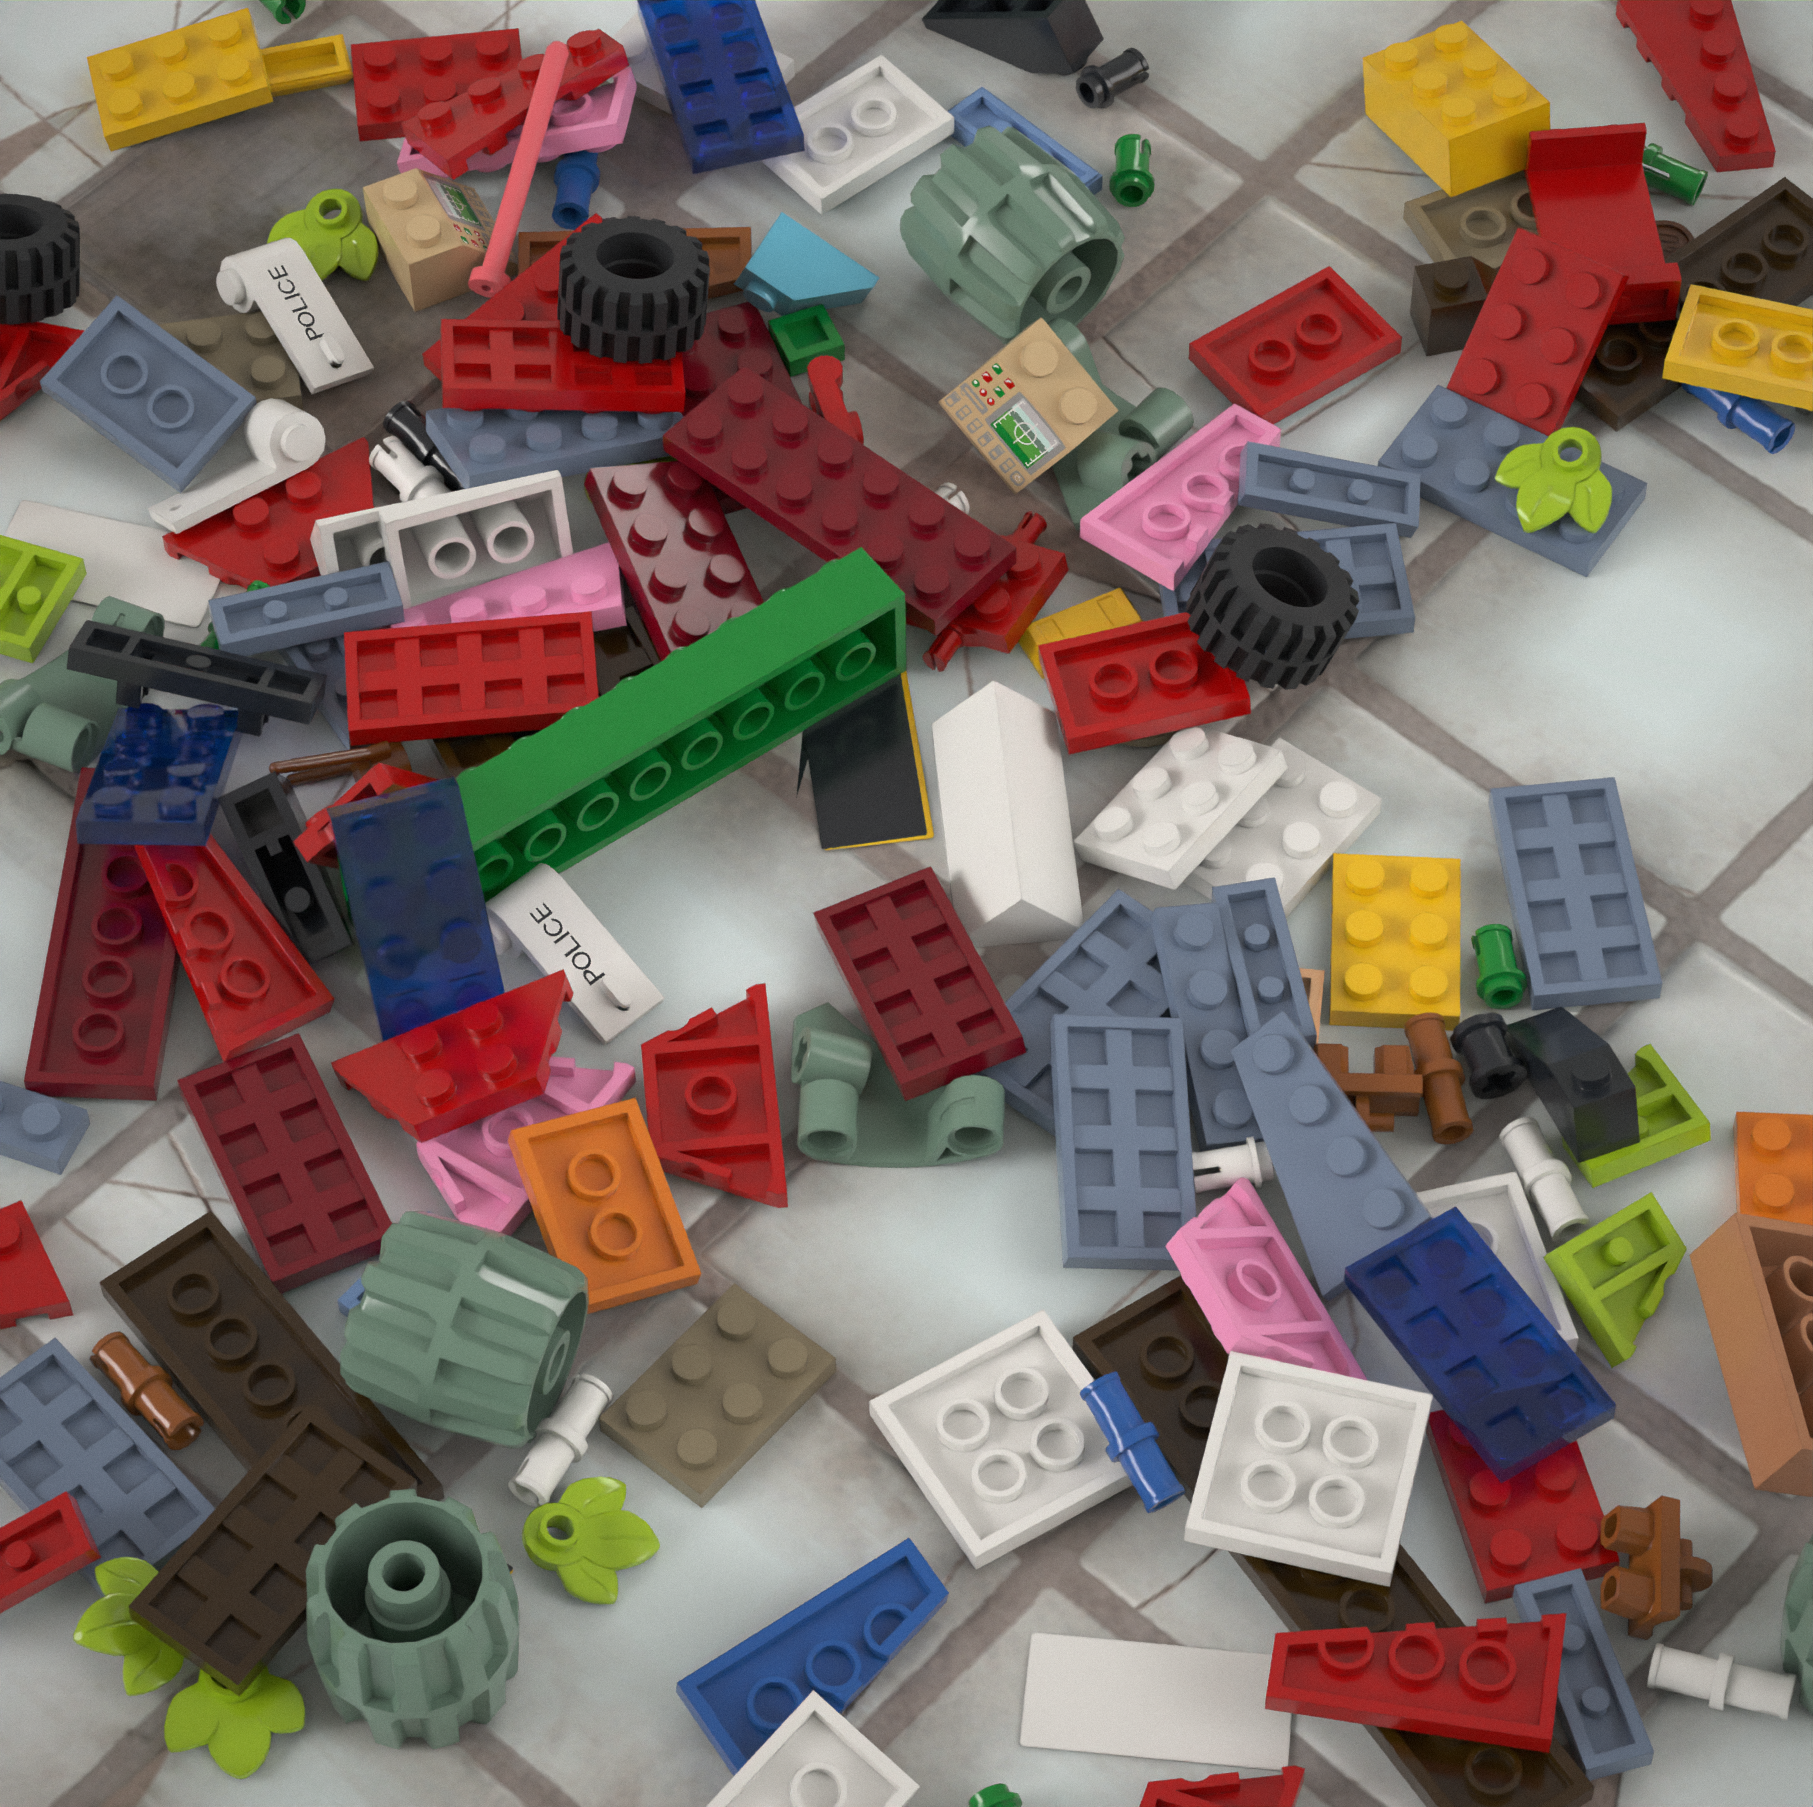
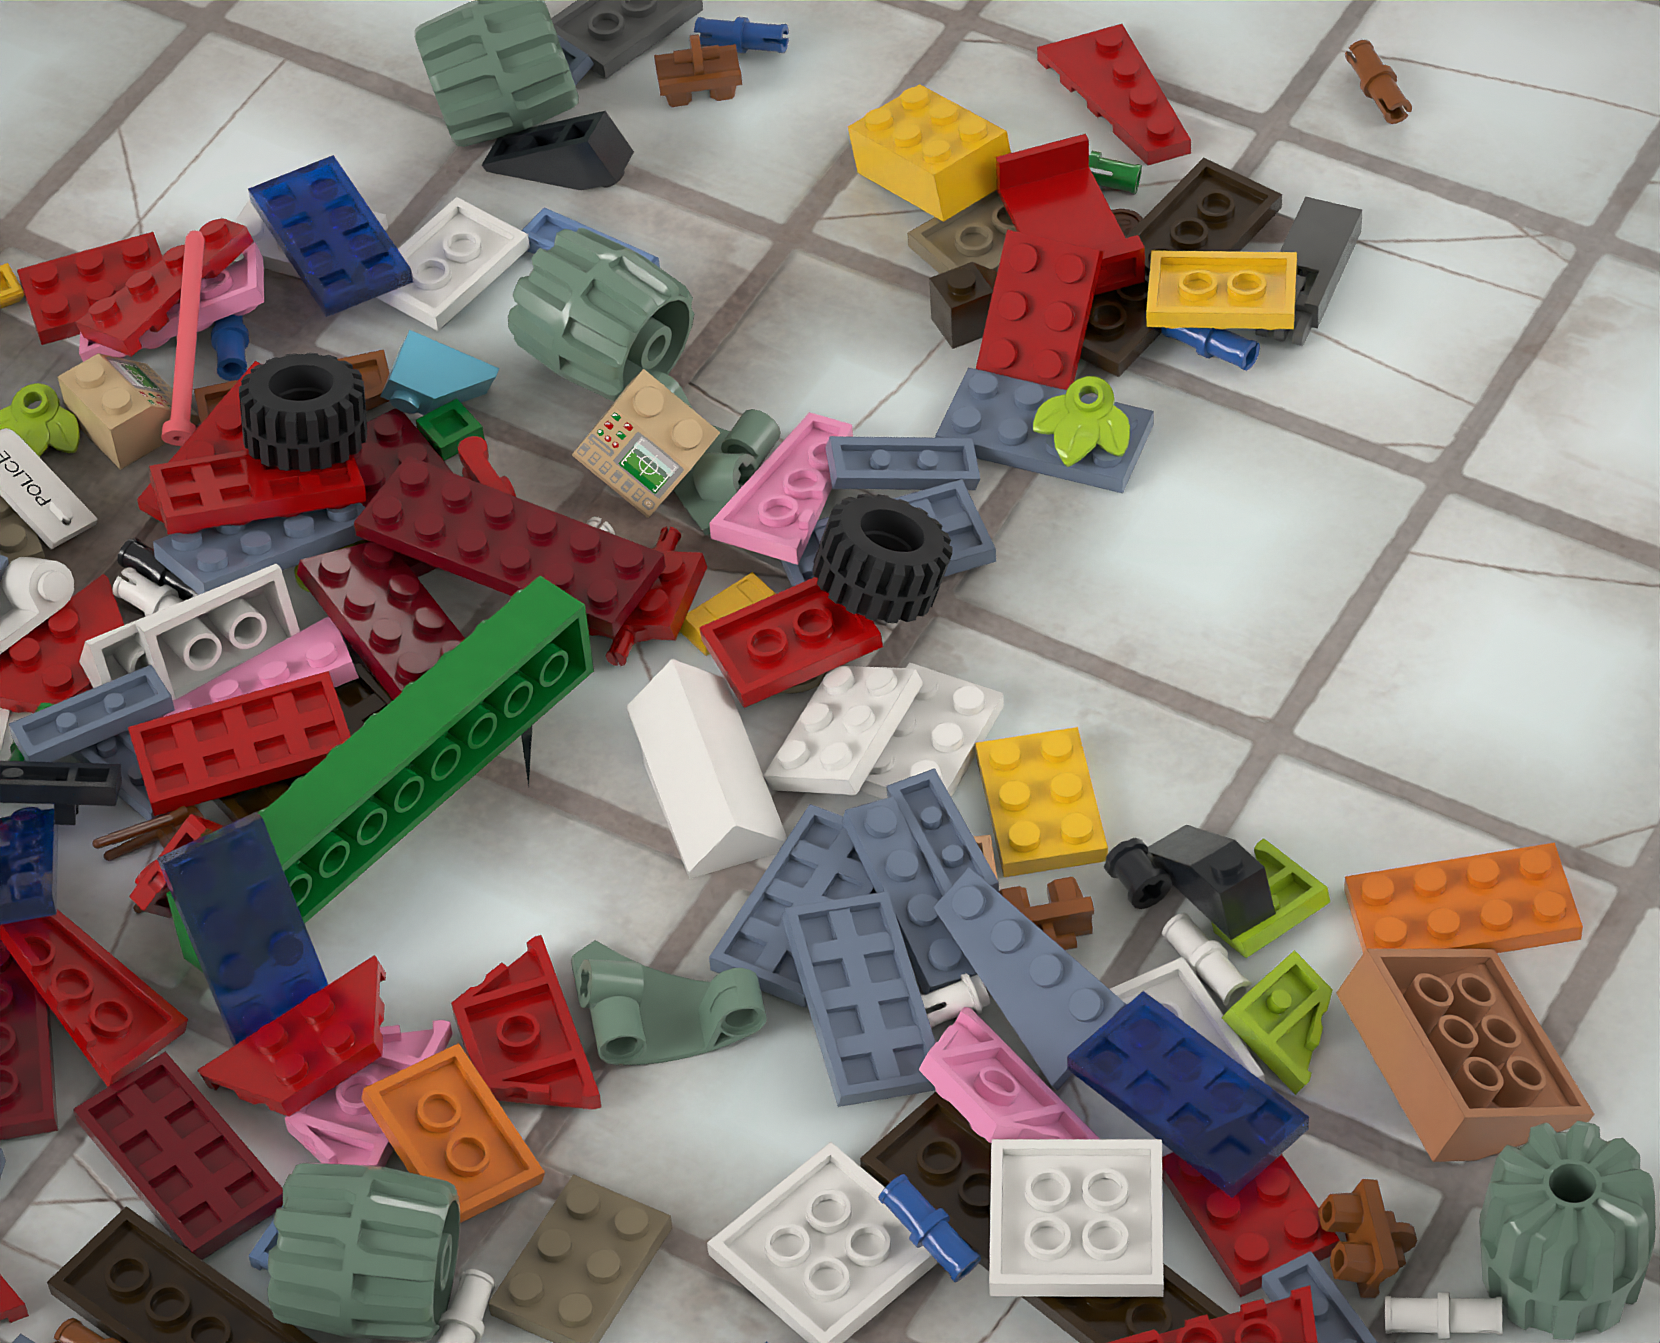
camera: 10 degrees left, 5 degrees down
(297, 894) = (123, 927): black slope -> none
(560, 932) = (359, 927): white door -> none
(869, 771) = (583, 755): black sticker -> none
(919, 983) = (667, 908): dark red plate -> none
(1102, 83) = (639, 188): black pin -> none
(1132, 181) = (683, 256): green pin -> none
(1295, 347) = (847, 360): red plate -> none
(1441, 1078) = (1106, 898): dark orange pin -> none
(1500, 980) = (1132, 813): green pin -> none
(1574, 894) = (1175, 735): sand blue plate -> none

